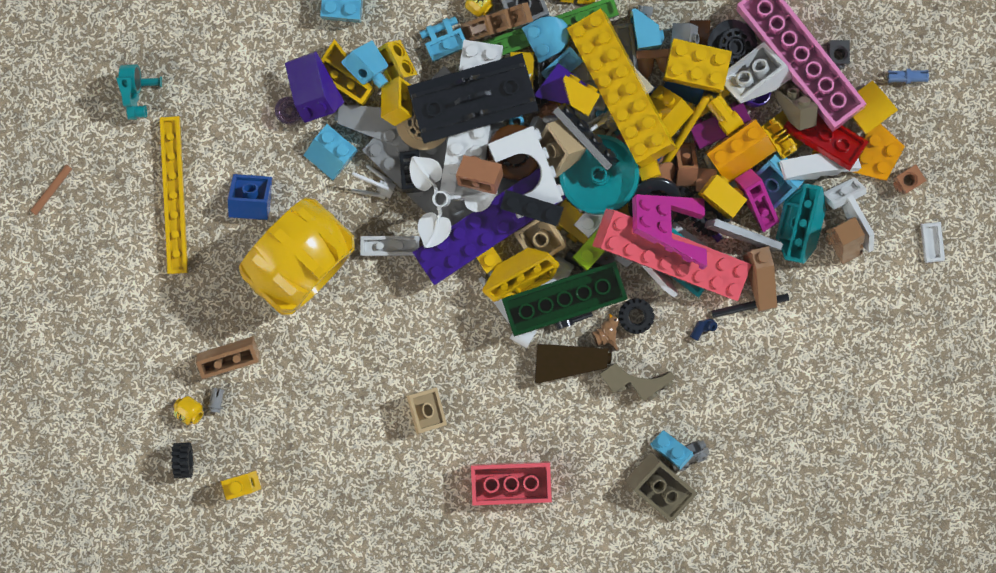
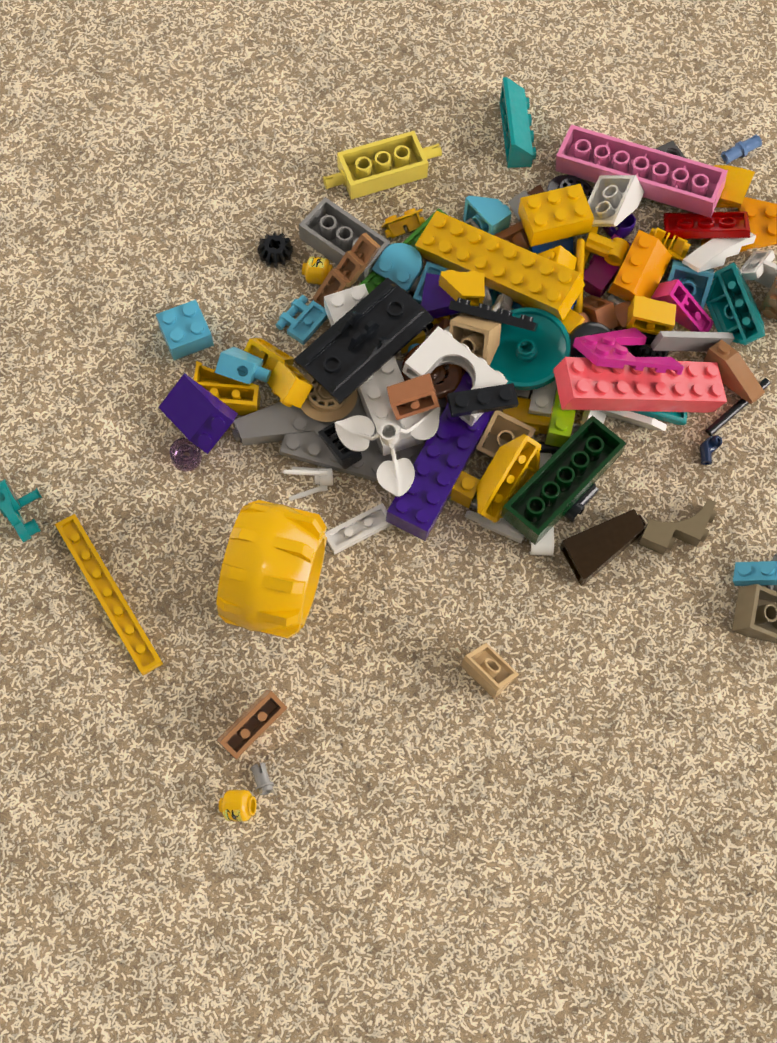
camera: 30 degrees left, 20 degrees down
(182, 460) = (259, 861): black tyre -> none
(240, 485) = (336, 856): yellow torso -> none
(250, 197) = (190, 554): blue slope -> none
(330, 152) = (249, 470): medium azure slope -> none
(511, 483) = (622, 693): coral brick -> none
(607, 332) = (622, 499): medium nougat animal -> none
(644, 307) = (645, 459): black tyre -> none
(797, 106) = (666, 211): dark tan slope -> none

